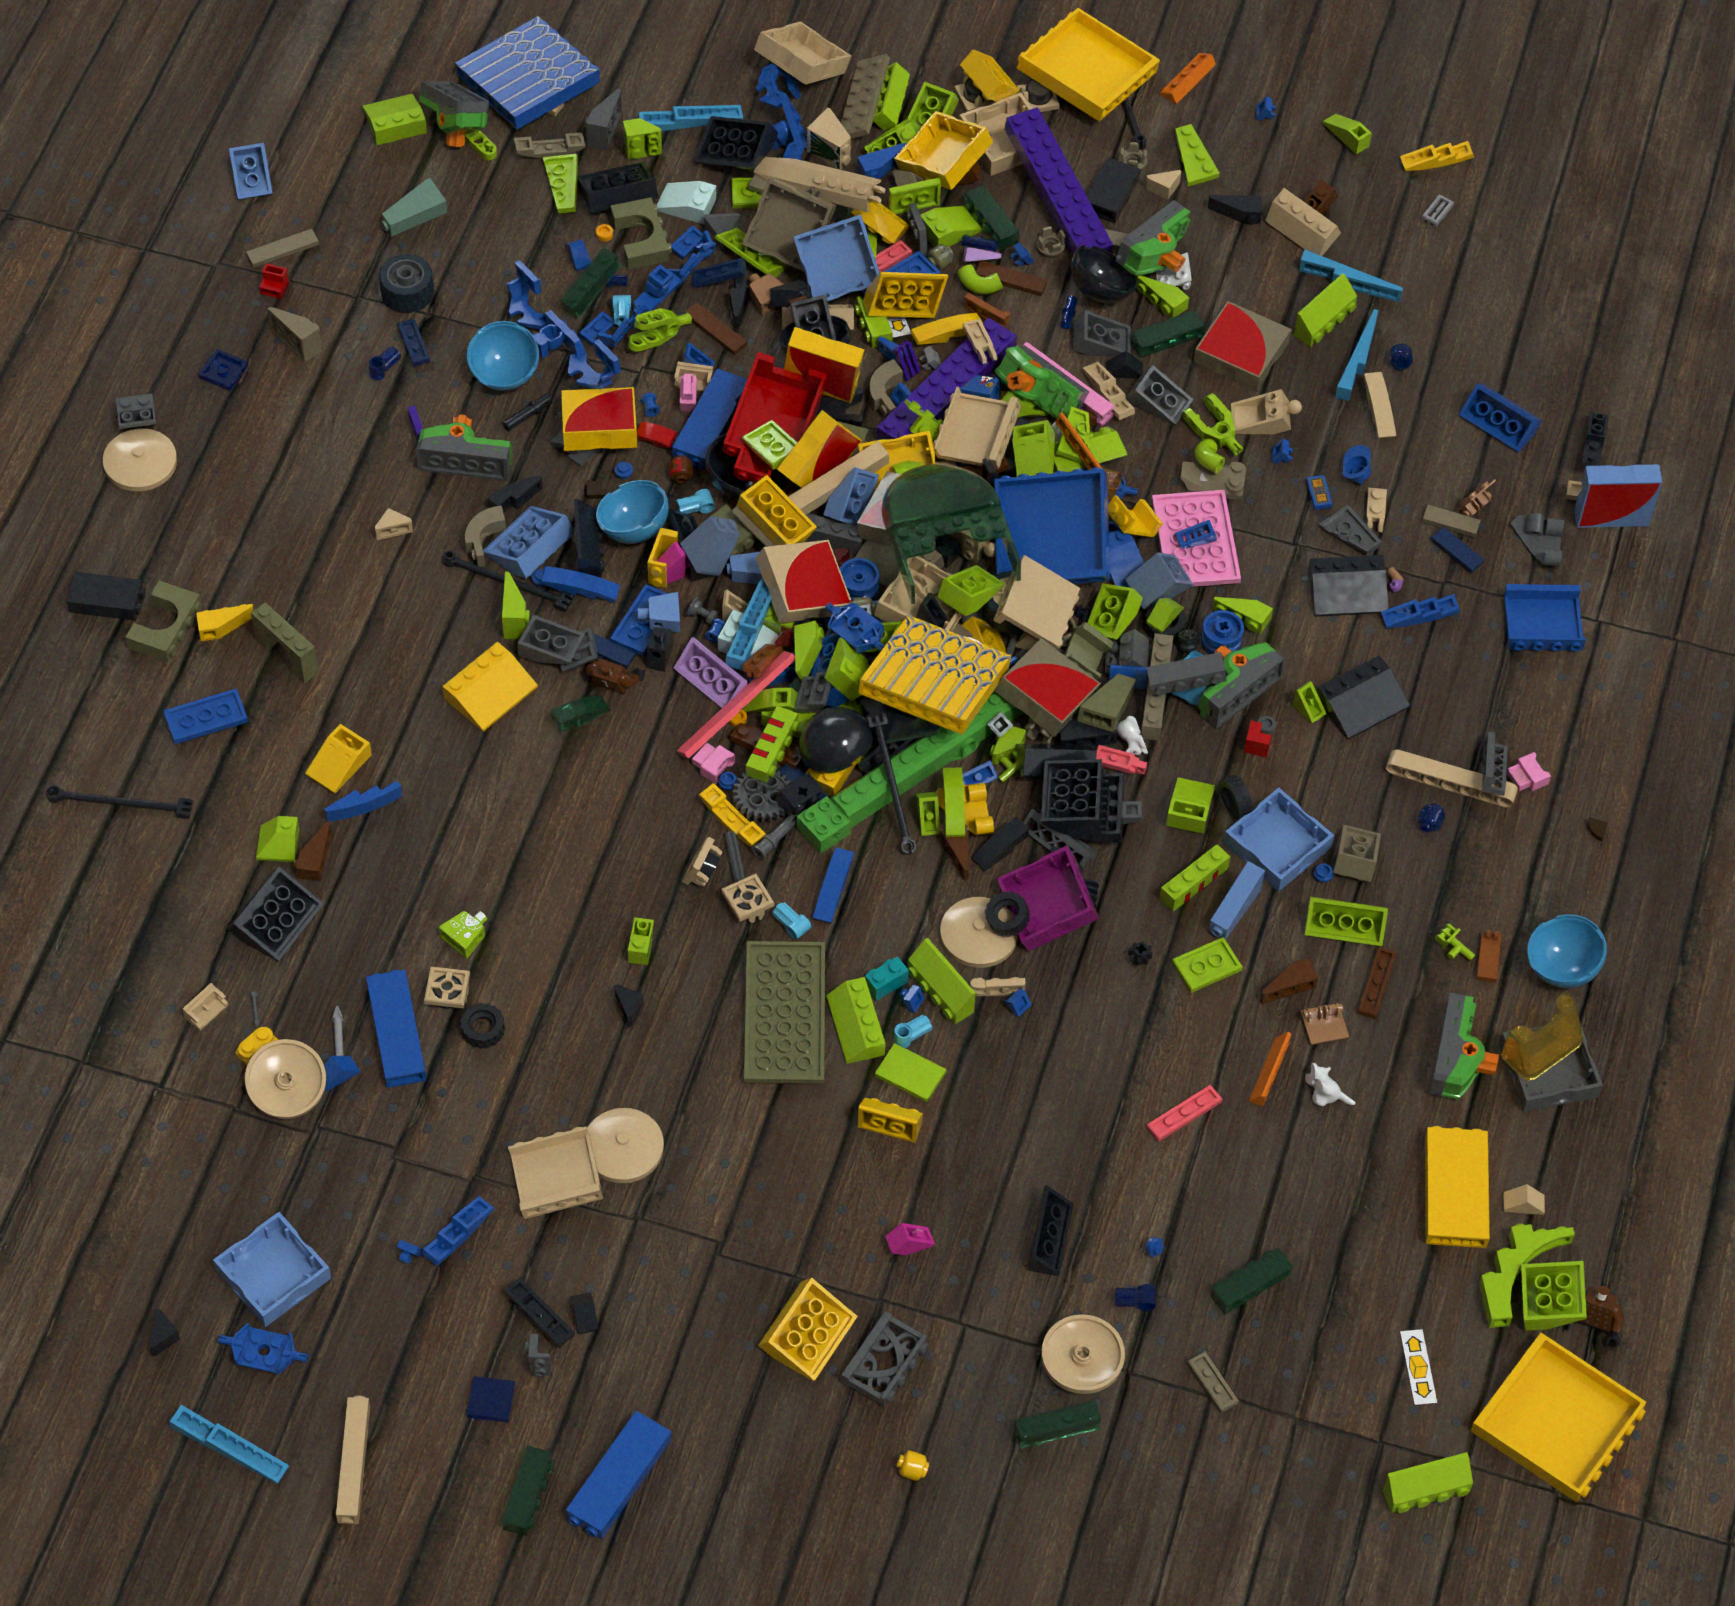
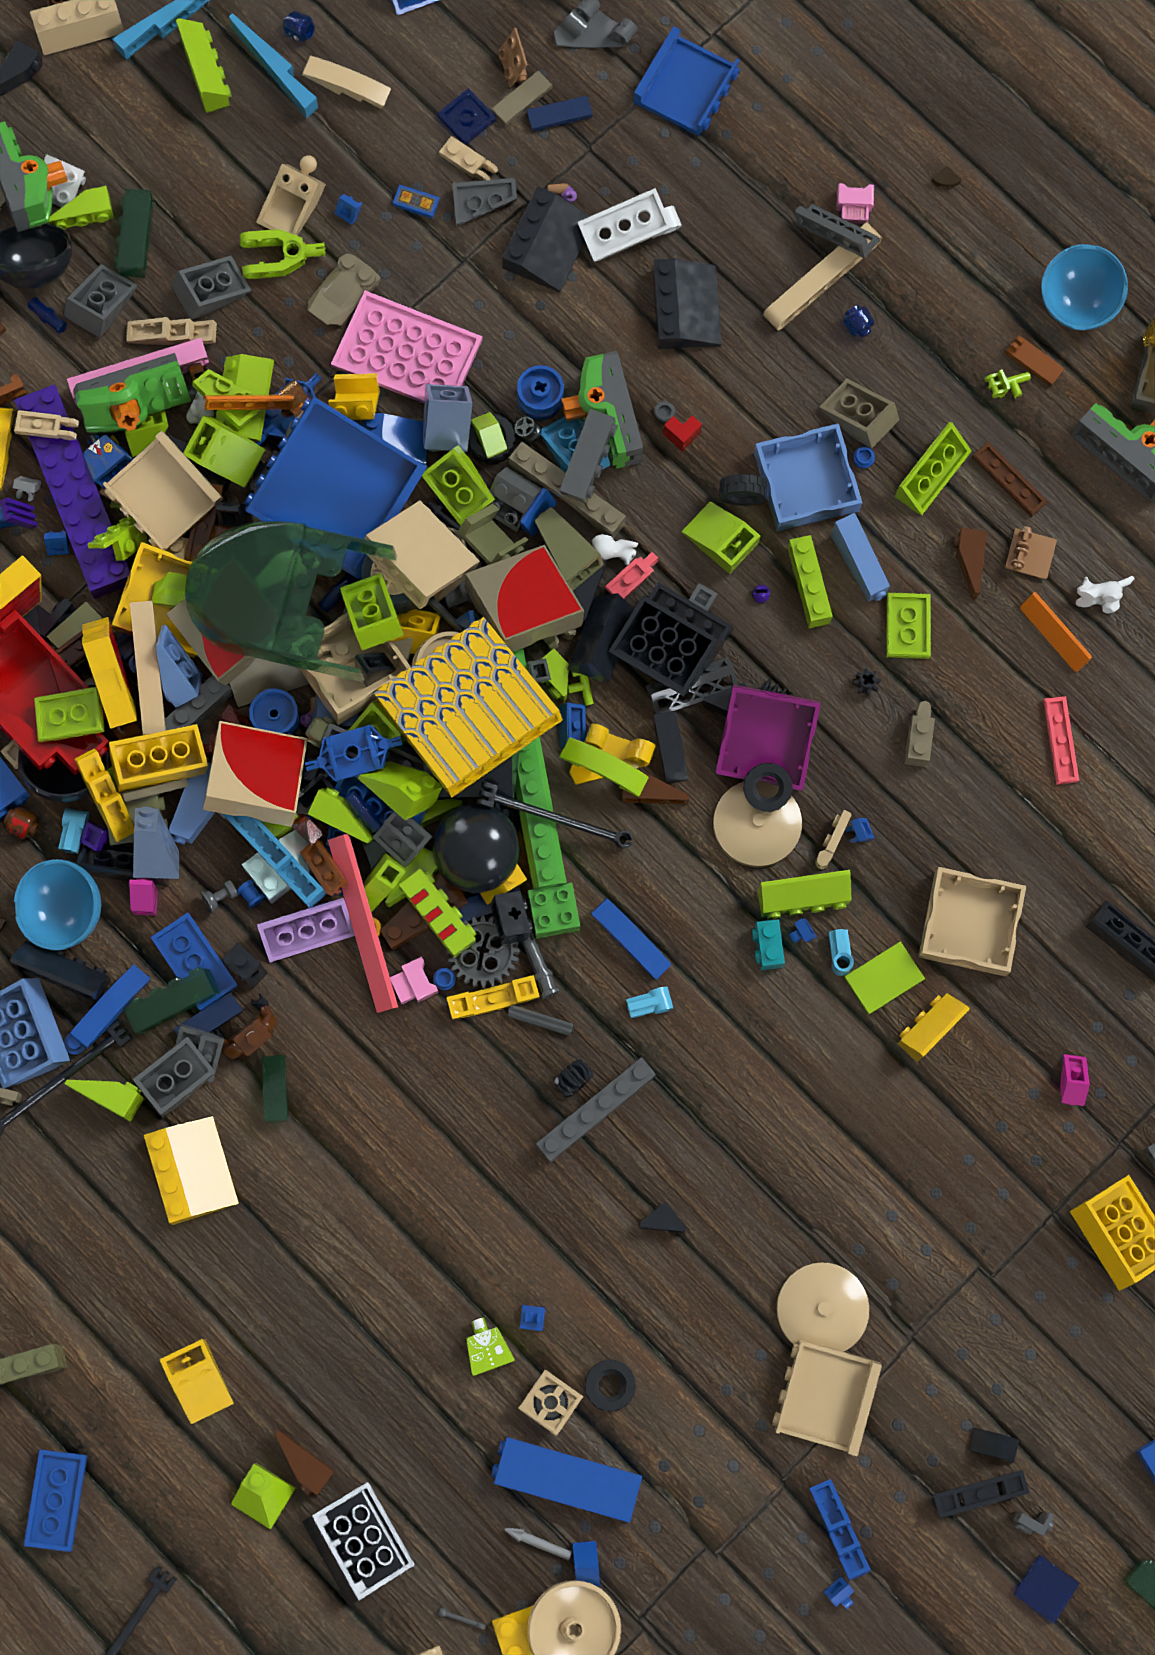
camera: 65 degrees left, 20 degrees up
(357, 804) = (263, 1388): blue slope -> none
(505, 953) = (532, 1318): none -> blue tile
(606, 615) = (171, 1001): none -> clear green brick
(640, 941) = (596, 1170): lime slope -> none
(657, 570) = (115, 888): yellow panel -> none
(662, 612) = (203, 939): medium blue torso -> none
(687, 920) = (595, 1110): none -> dark grey brick
(698, 515) = (94, 836): none -> dark purple tile
(702, 893) = (573, 1078): none -> black gear
(703, 863) = (538, 1059): tan piece -> none
(732, 602) = (232, 859): tan slope -> none
(733, 489) = (105, 795): none -> yellow slope
(748, 898) = (604, 1035): tan piece -> none
(785, 1012) = (753, 1066): olive plate -> none
(818, 658) = (363, 811): none -> clear blue pin
(856, 1021) = (801, 1001): lime slope -> none
(881, 381) = (22, 543): dark tan arch -> none
(928, 813) = (594, 797): lime slope -> none
(993, 1110) = (972, 921): none -> tan tile
(1119, 1008) = (920, 736): none -> dark tan hinge
(1125, 366) = (150, 299): black slope -> none
(1161, 854) = (761, 597): none -> dark purple hinge
(1198, 528) = (413, 333): blue slope -> none
(1206, 455) = (317, 284): lime cylinder -> none
(1242, 345) = (195, 169): tile -> none
(1252, 612) = (528, 352): lime slope -> none
(1308, 702) = (665, 358): lime slope -> none
(1357, 464) = (407, 145): blue piece -> none
(1410, 493) = (466, 116): none -> clear blue tile
(1412, 648) = (661, 222): none -> white hinge
(1420, 612) = (616, 180): blue slope -> none

